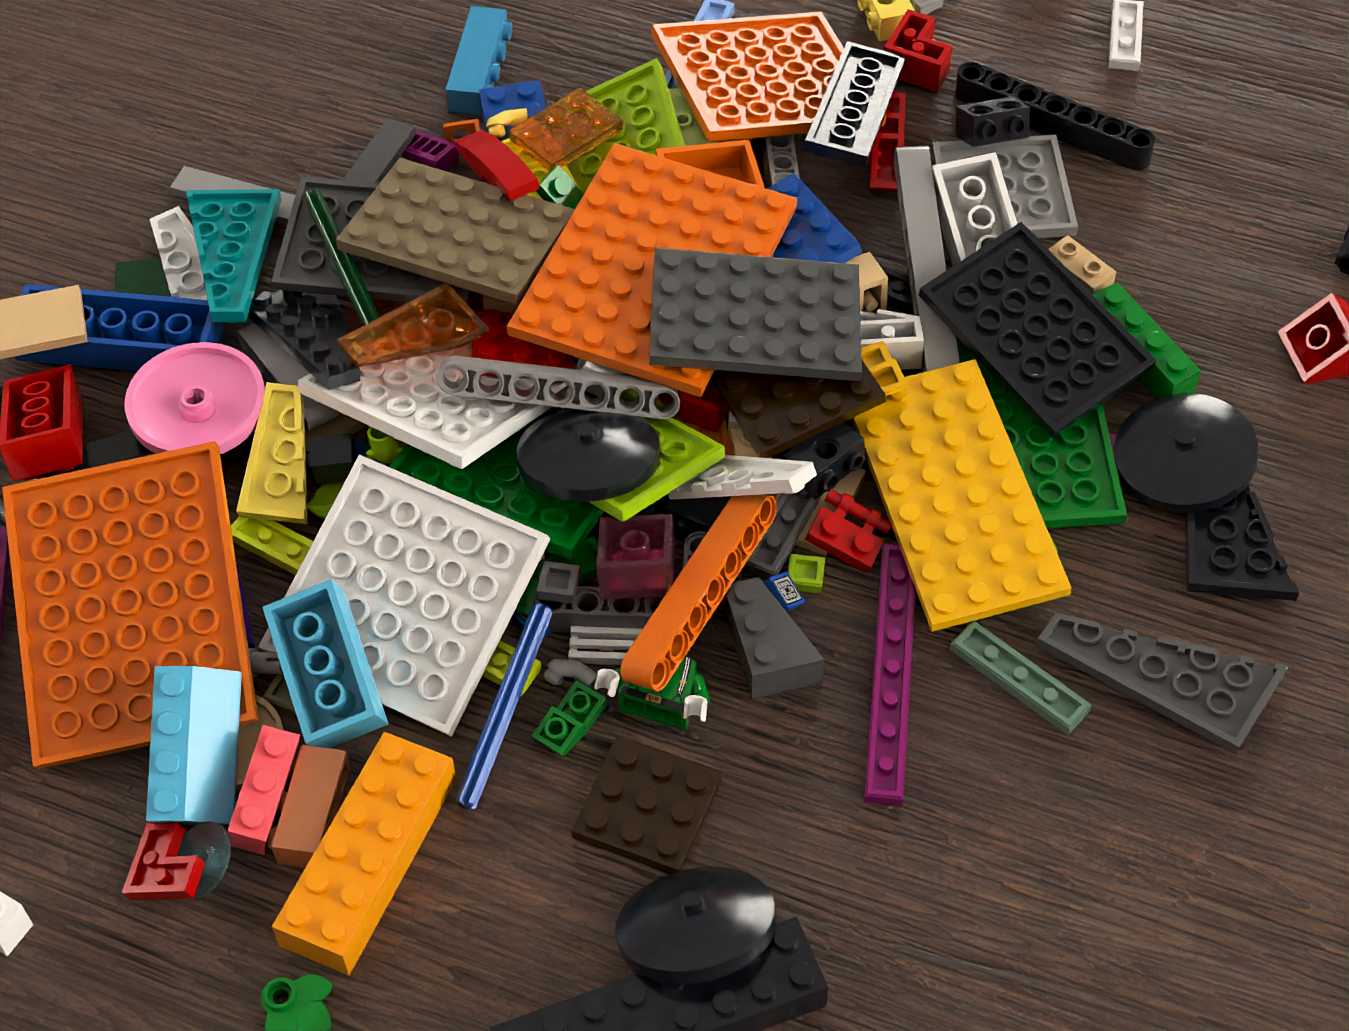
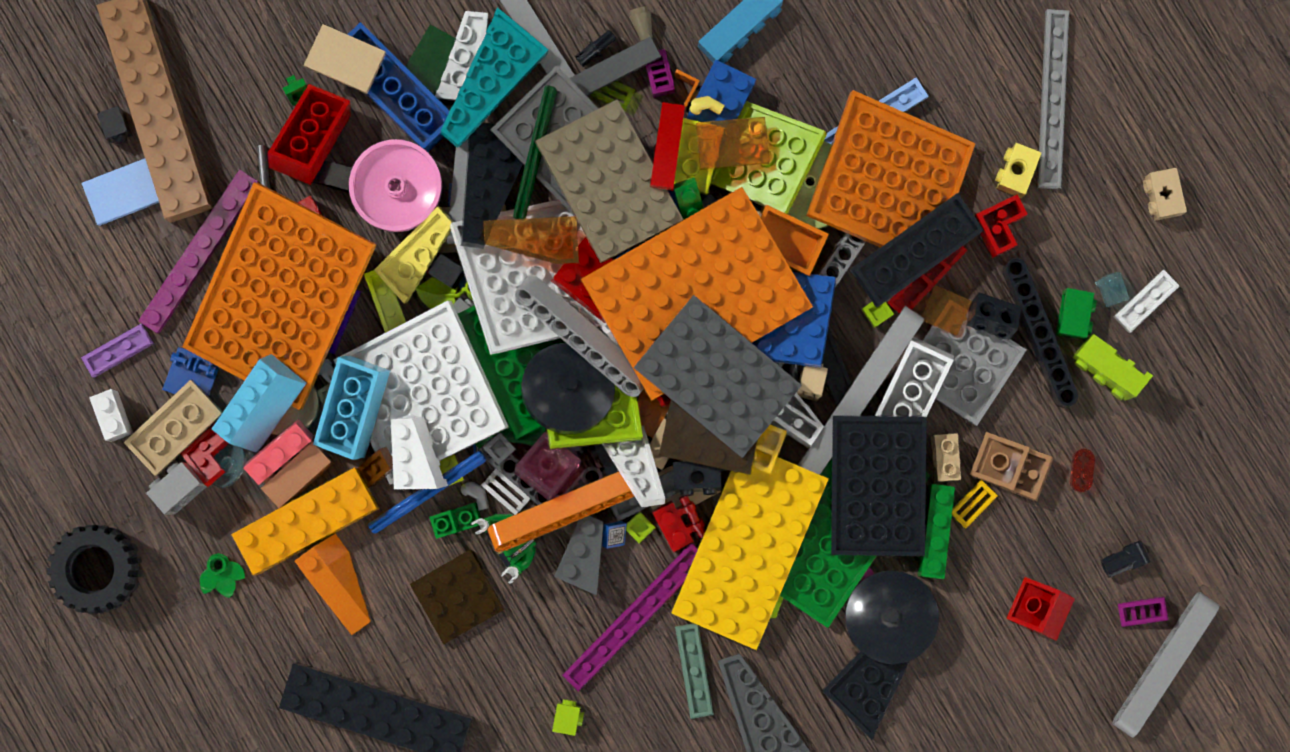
camera: 35 degrees right, 30 degrees up
(70, 795) = (188, 367): none -> blue hinge
(88, 868) = (173, 427): none -> tan plate
(148, 927) = (175, 488): none -> light grey brick
(334, 166) = (594, 49): none -> black axle
(363, 116) = (641, 21): none -> dark tan cone
(416, 710) = (376, 467): none -> reddish brown plate
(457, 658) = (413, 455): none -> white wedge
(459, 898) = (334, 578): none -> orange wedge
(696, 925) = (423, 685): black dish -> none
(868, 201) = (877, 315): none -> lime plate
(919, 837) = (567, 717): none -> lime brick
(943, 144) = (946, 310): none -> clear orange piece
(1070, 76) = (1075, 314): none -> green brick
(1082, 42) = (1113, 289): none -> clear light blue tile
(1155, 240) = (1011, 466): none -> medium nougat slope
(1159, 95) = (1110, 368): none -> lime wedge
(1163, 322) = (959, 518): none -> yellow tile
(1223, 197) = (1076, 470): none -> clear red beam

